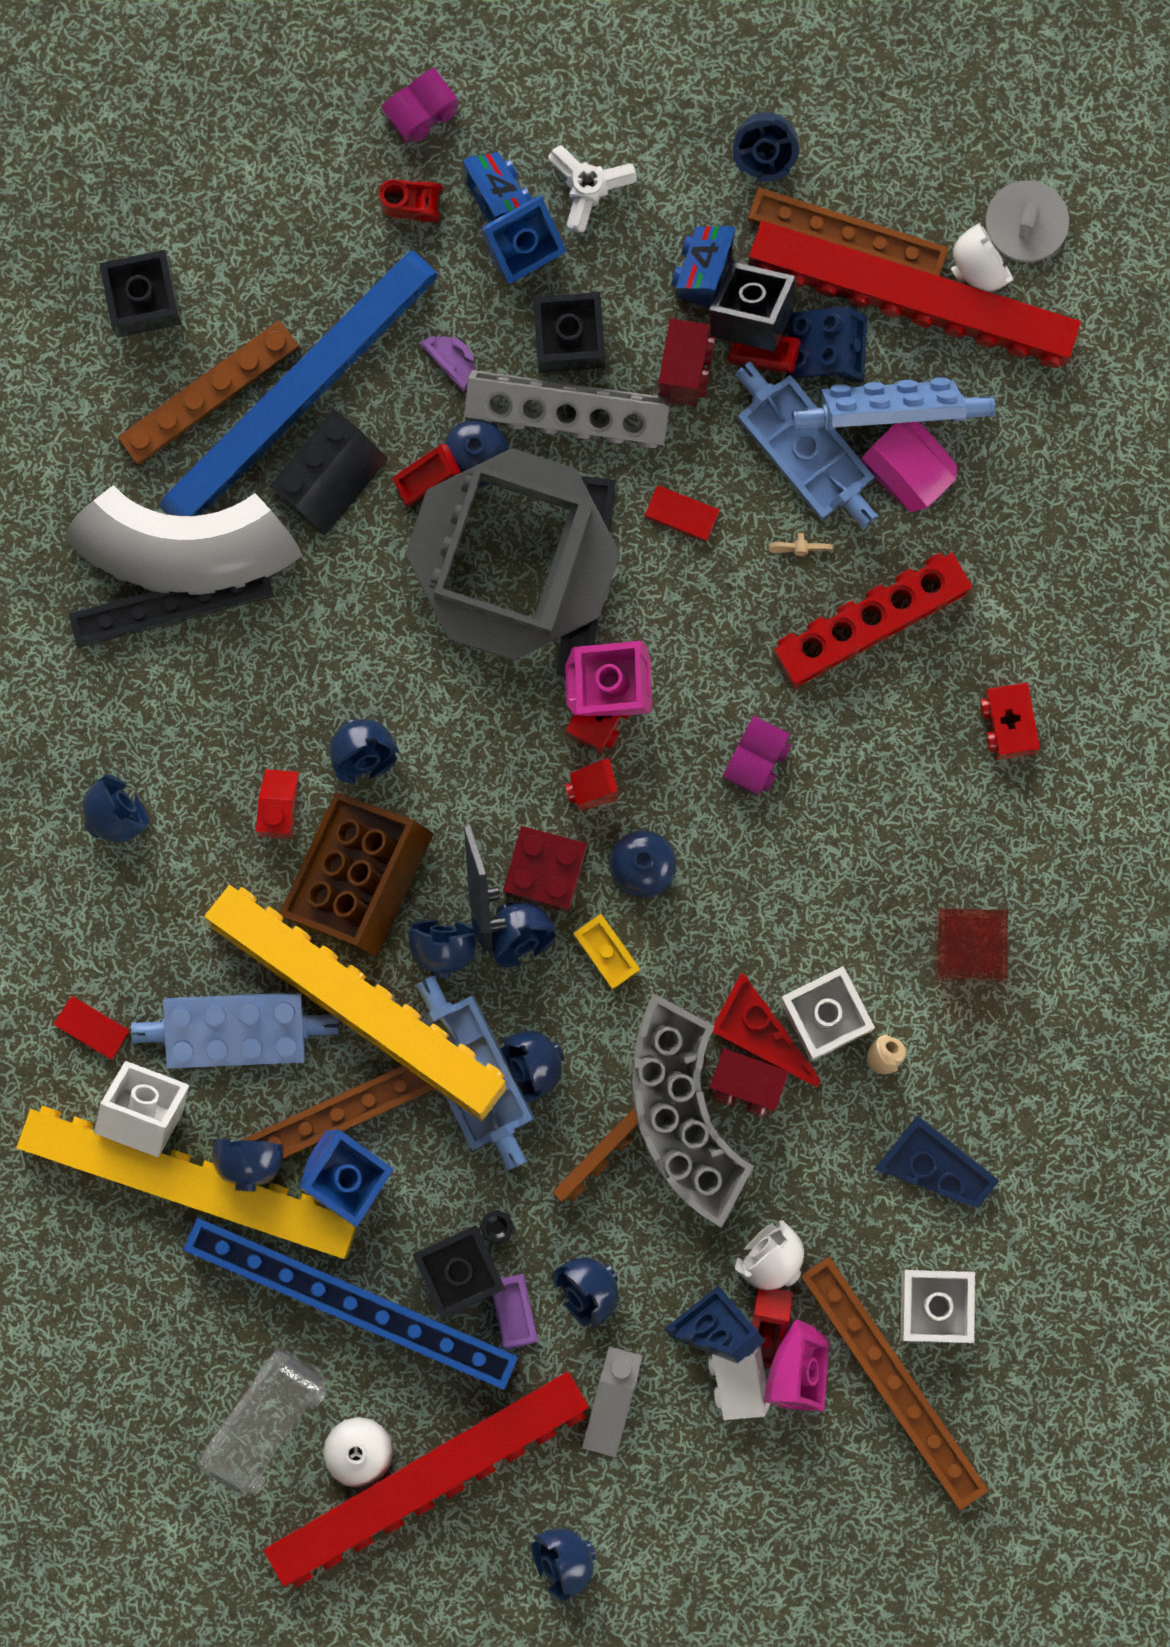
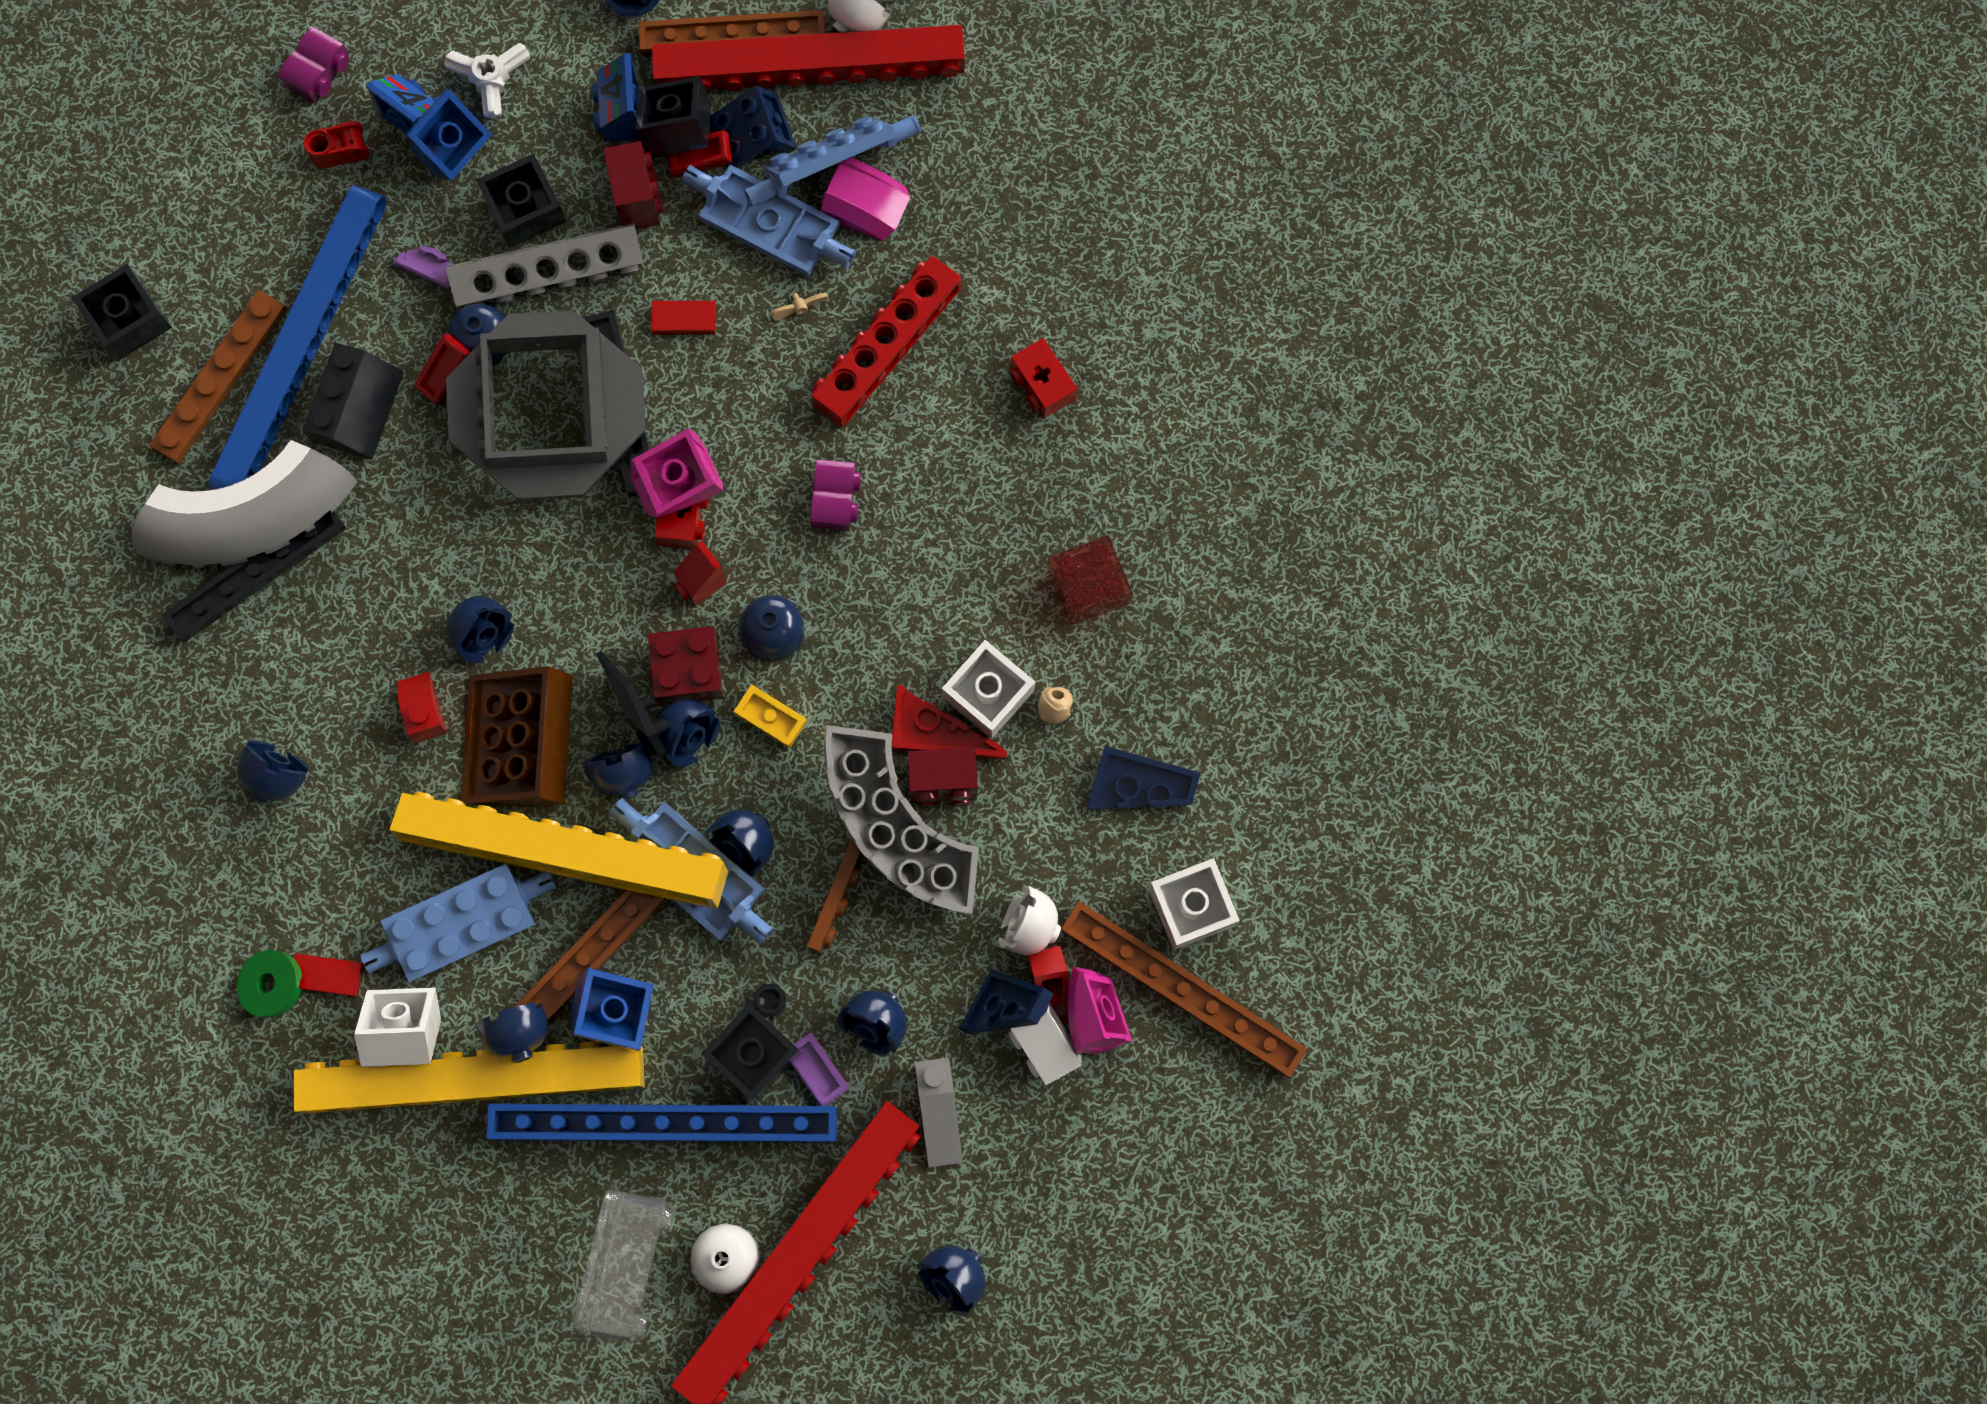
camera: 30 degrees left, 5 degrees down
(20, 1009) = (252, 981): none -> green tile

